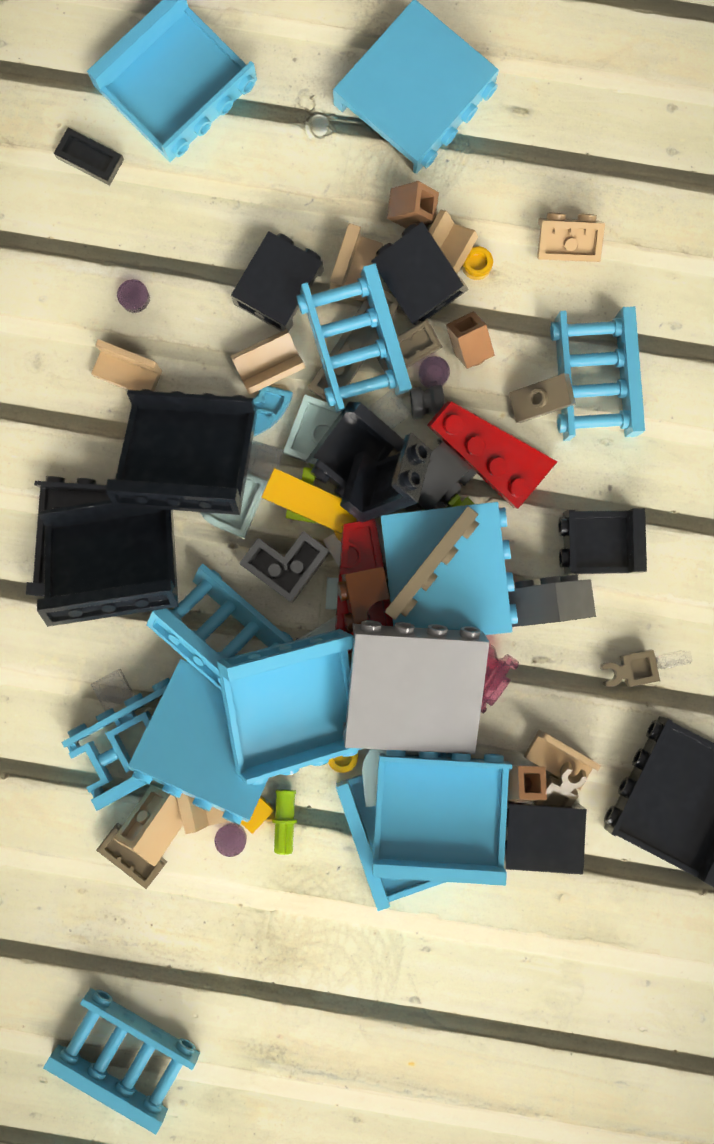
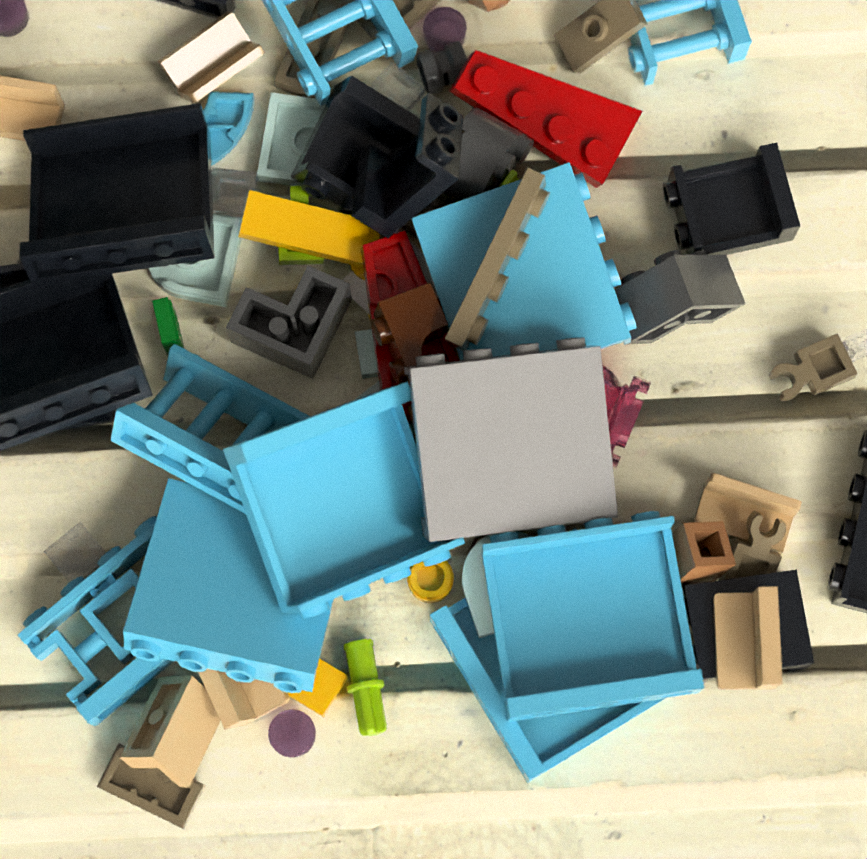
camera: 10 degrees left, 10 degrees down
(202, 548) = (167, 323): none -> green tile
(543, 852) = (747, 640): none -> tan panel

